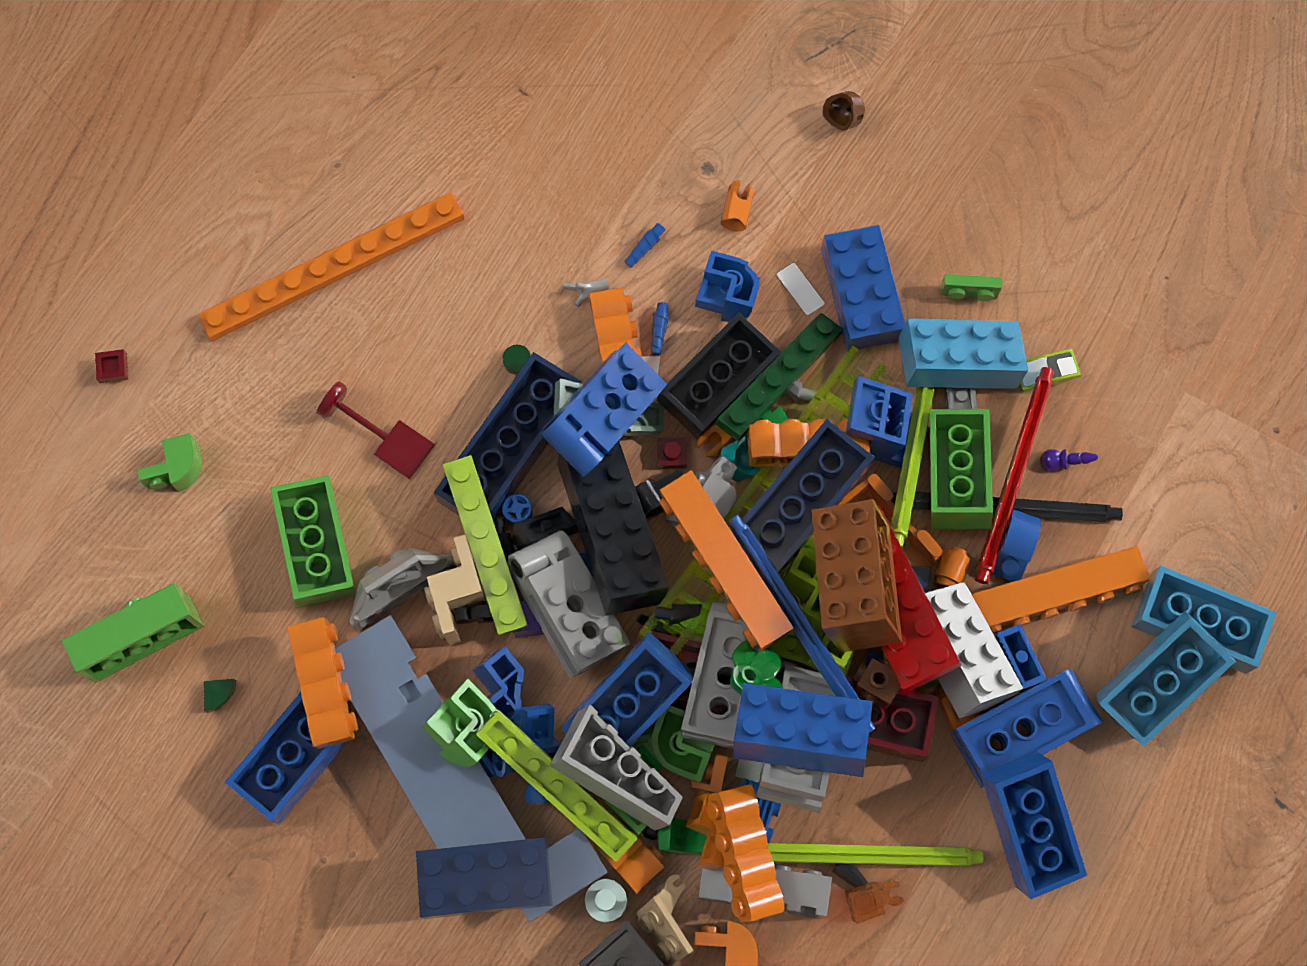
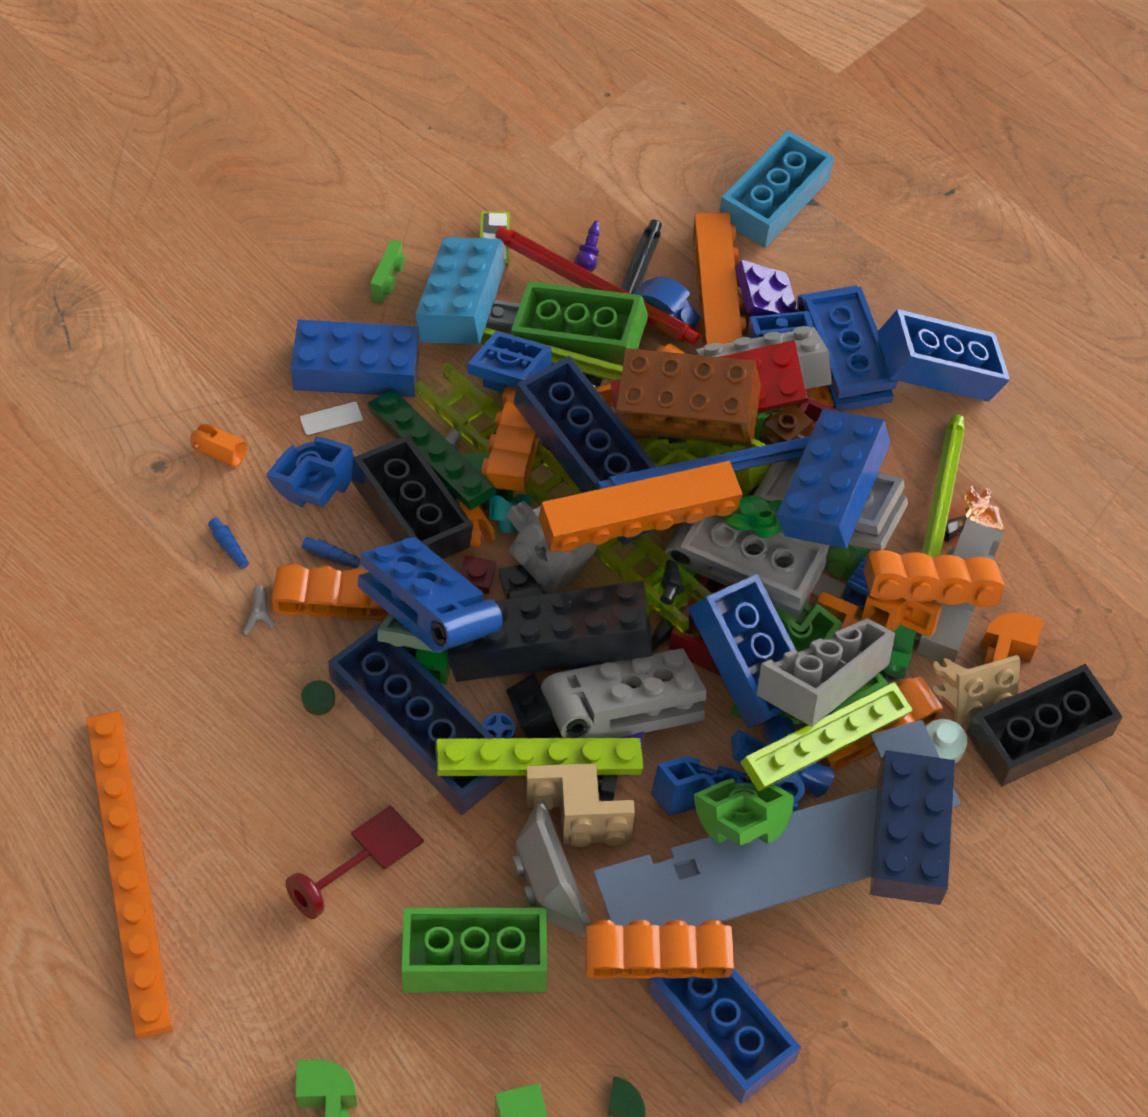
camera: 80 degrees left, 15 degrees down
(846, 110) = (151, 321): reddish brown piece -> none
(1066, 638) = (765, 289): none -> dark purple plate
(1164, 678) = (829, 222): dark azure brick -> none

